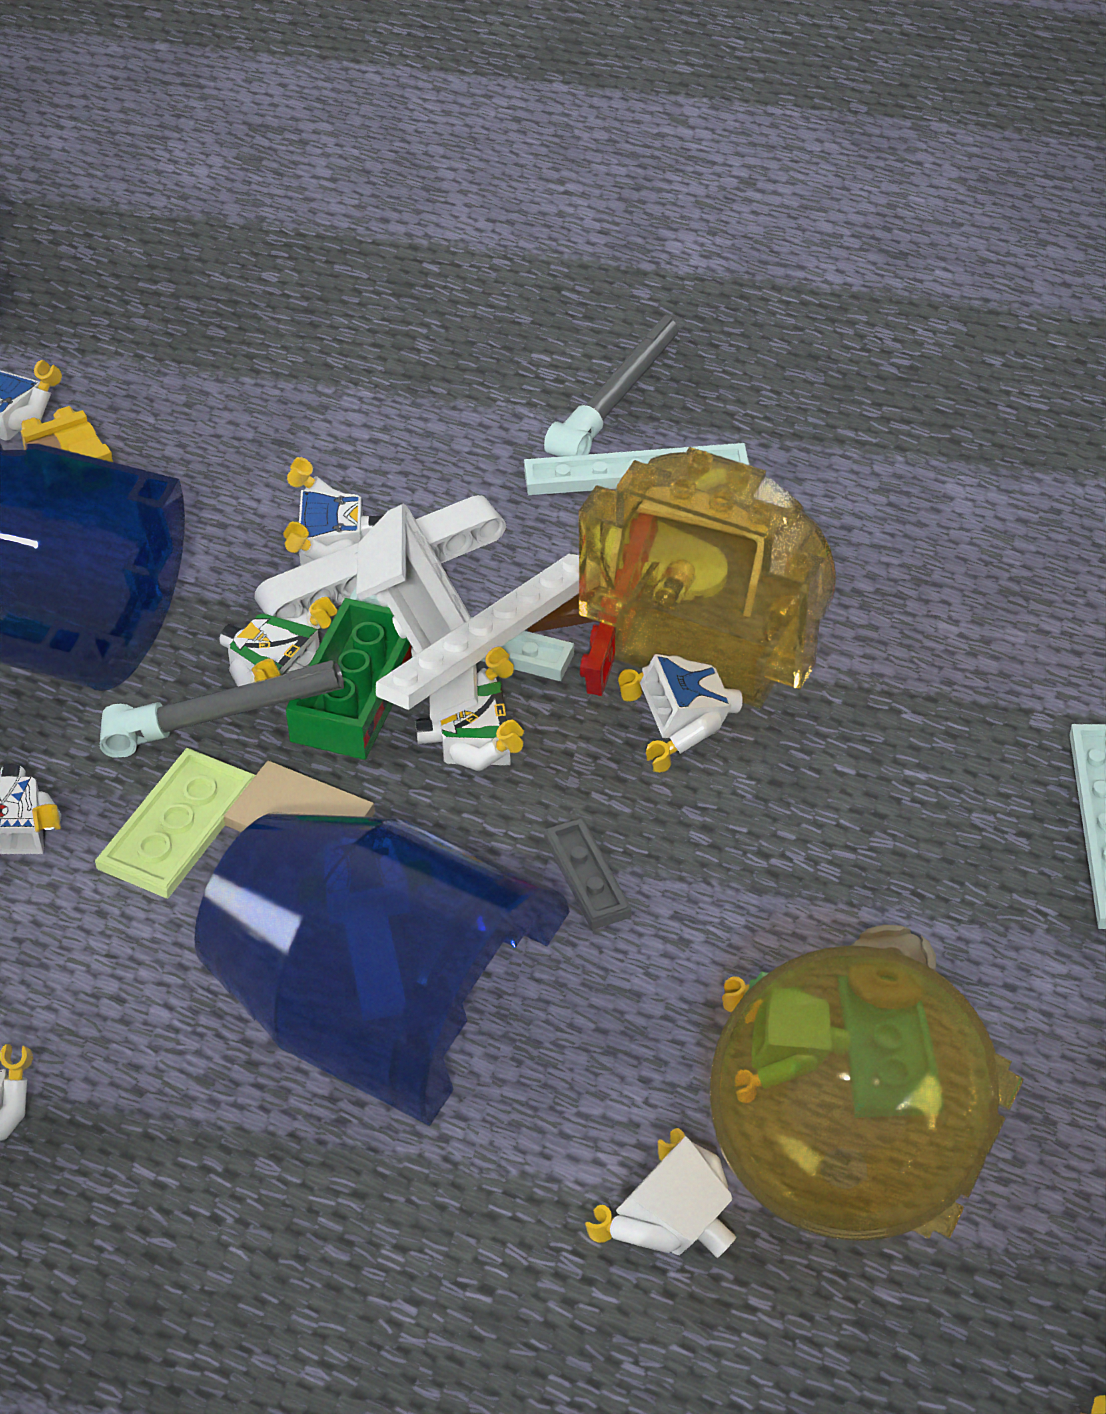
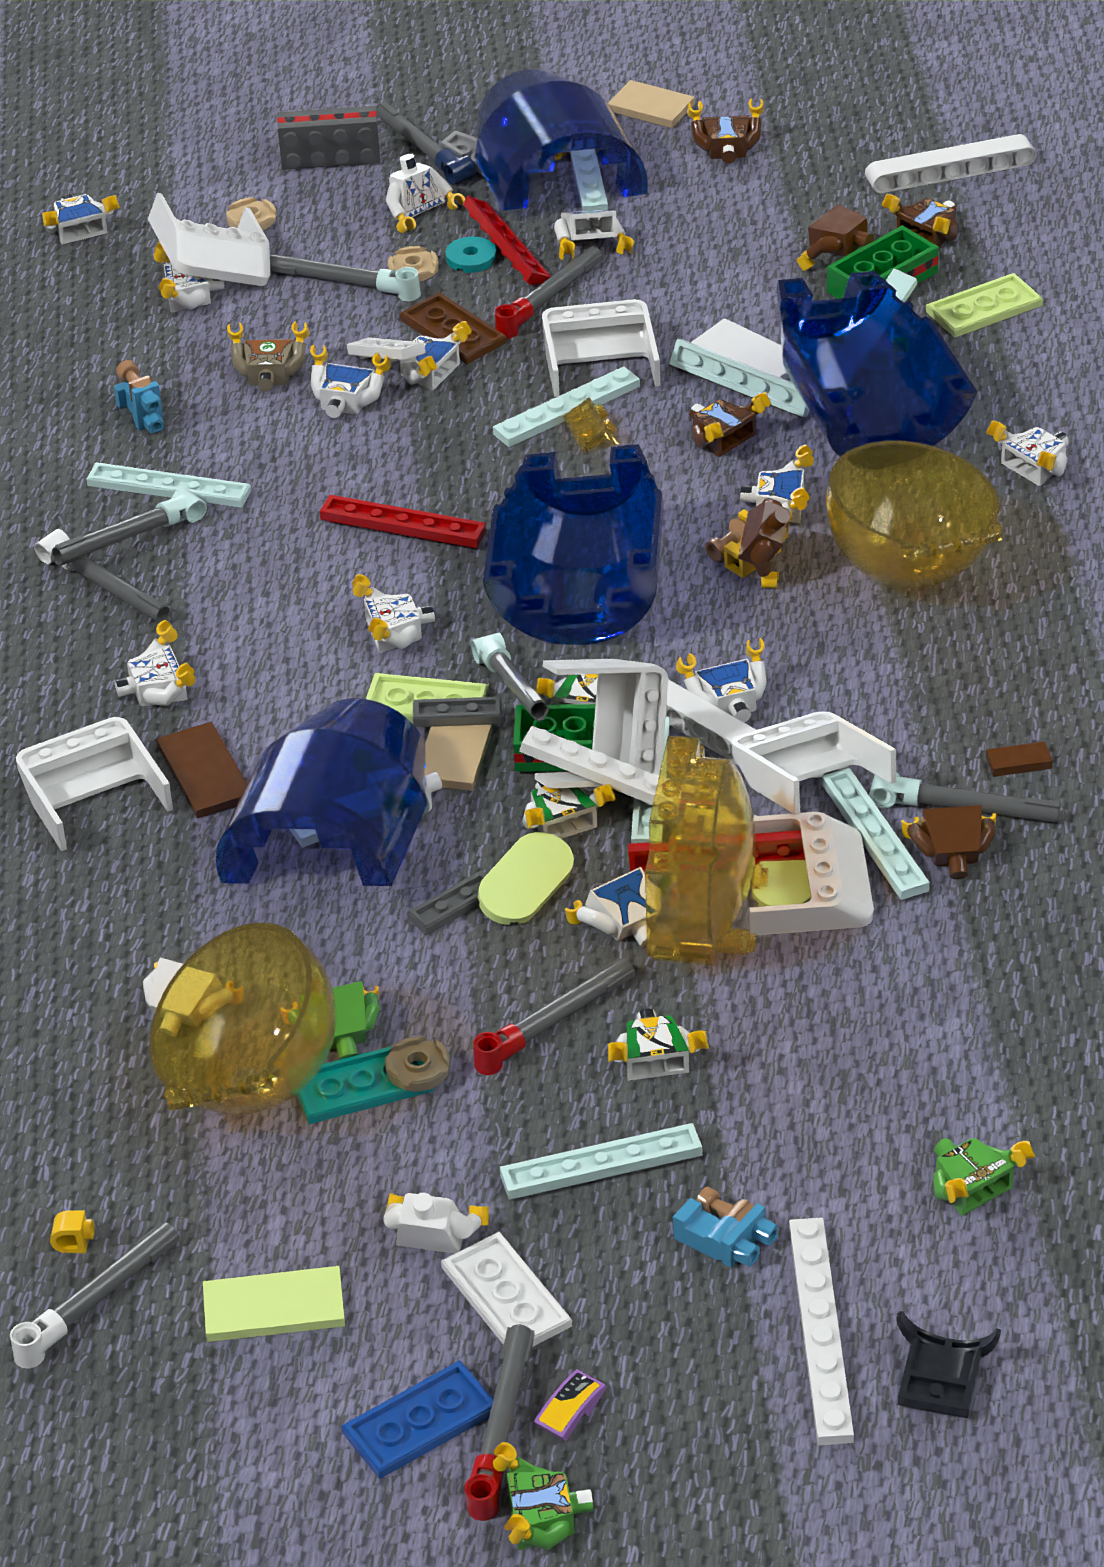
camera: 75 degrees right, 5 degrees down
(73, 194) = (1031, 453): none -> white torso
(106, 409) = (763, 538): none -> reddish brown torso
(123, 1240) = (86, 765): none -> white windscreen
(175, 277) = (910, 512): none -> clear yellow windscreen
(186, 1098) = (203, 769): none -> reddish brown tile
(233, 786) = (457, 711): none -> dark grey tile
(495, 479) = (806, 748): none -> white windscreen
(561, 336) = (1019, 759): none -> reddish brown tile
(584, 788) = (525, 878): none -> yellowish green tile
(681, 407) = (952, 836): none -> reddish brown torso
(884, 877) = (494, 1048): none -> dark grey piece
(934, 726) = (655, 1046): none -> torso

